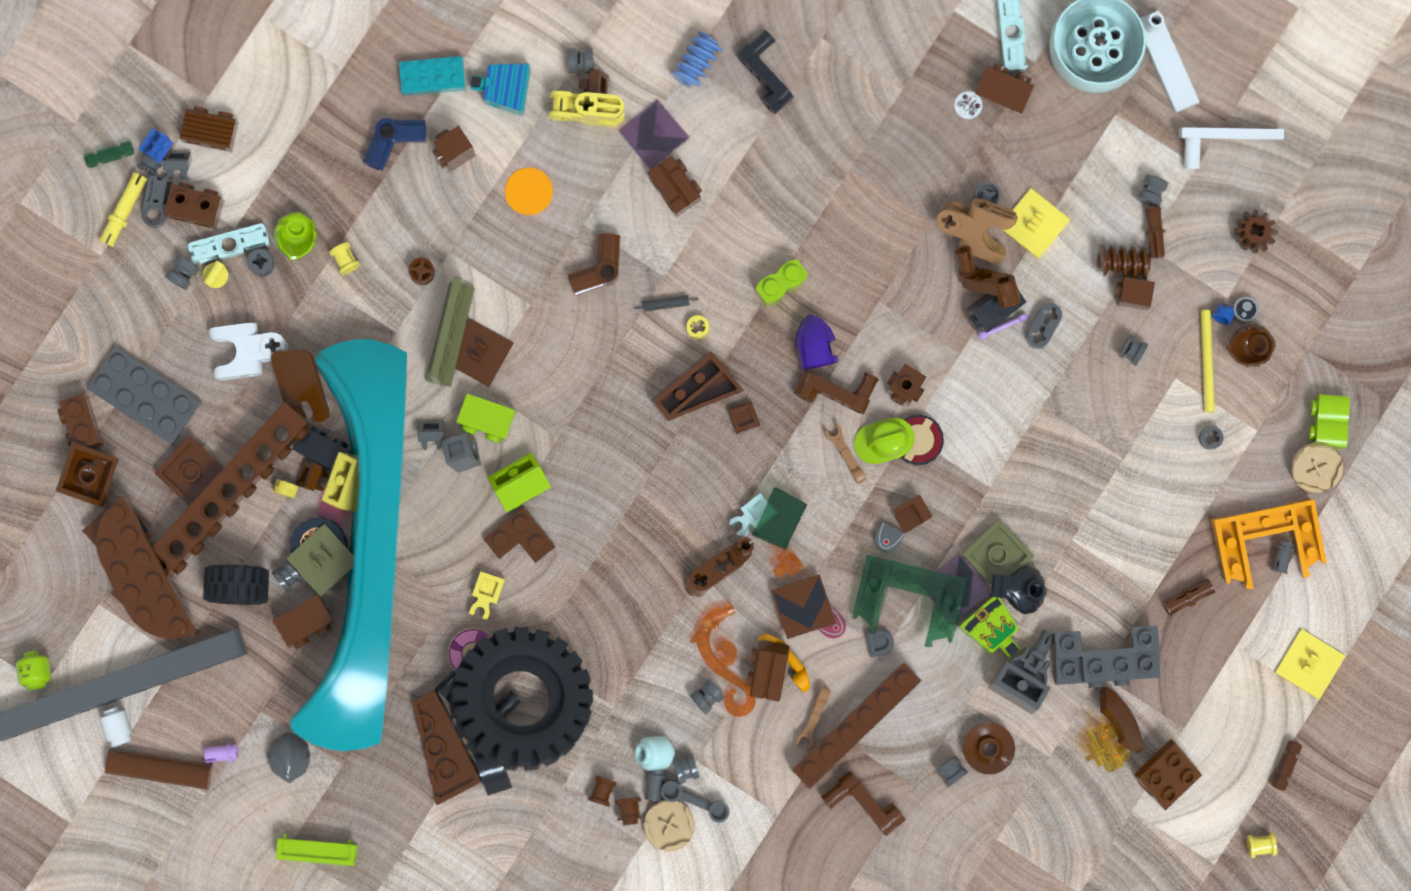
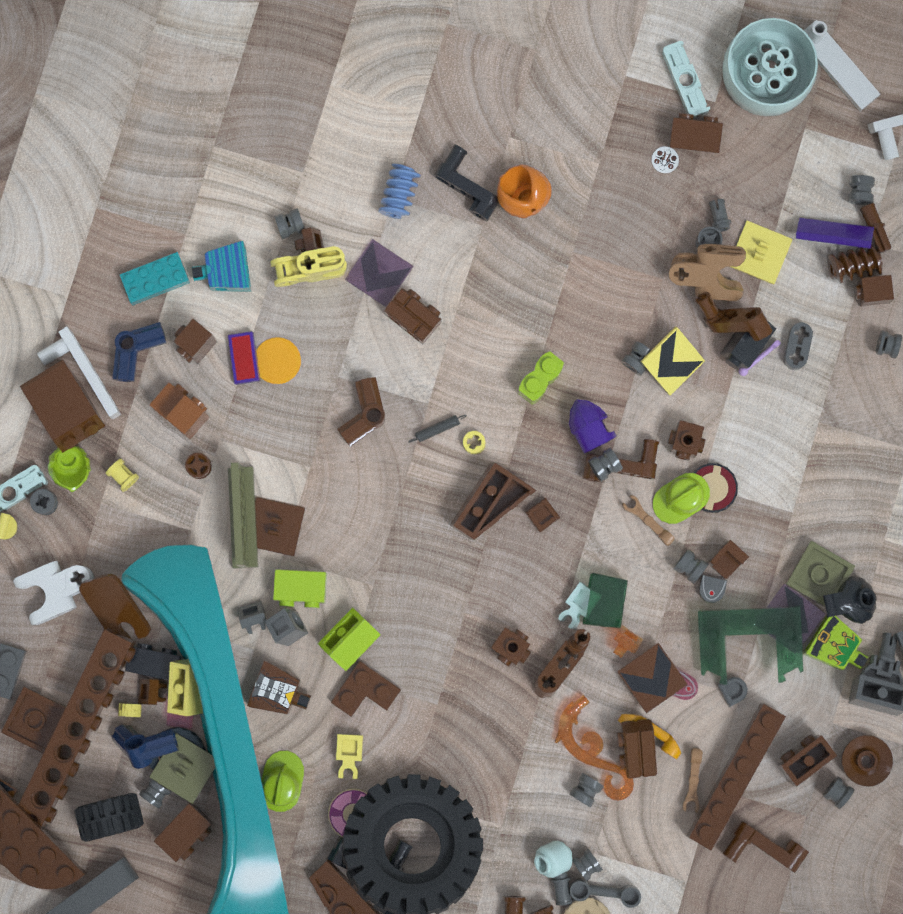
camera: 10 degrees left, 0 degrees up
(286, 529) = (143, 749): none -> dark blue piece
(306, 174) = (62, 406): none -> reddish brown slope
(330, 115) = (69, 343): none -> white piece
(414, 601) = (282, 780): none -> lime piece
(419, 211) = (179, 410): none -> dark orange brick
(434, 512) = (277, 691): none -> torso
(497, 179) = (244, 358): none -> red tile
(671, 527) = (501, 647): none -> reddish brown brick
(818, 95) = (523, 191): none -> orange piece
(818, 385) = (605, 464): none -> dark grey wheel
(874, 511) = (692, 568): none -> dark grey wheel
(883, 292) = (633, 360): none -> dark grey wheel
(915, 304) = (672, 361): none -> light yellow piece
(929, 730) = (806, 760): none -> reddish brown brick
(1005, 176) = (720, 216): none -> dark grey pin
(1112, 225) = (834, 233): none -> dark purple tile

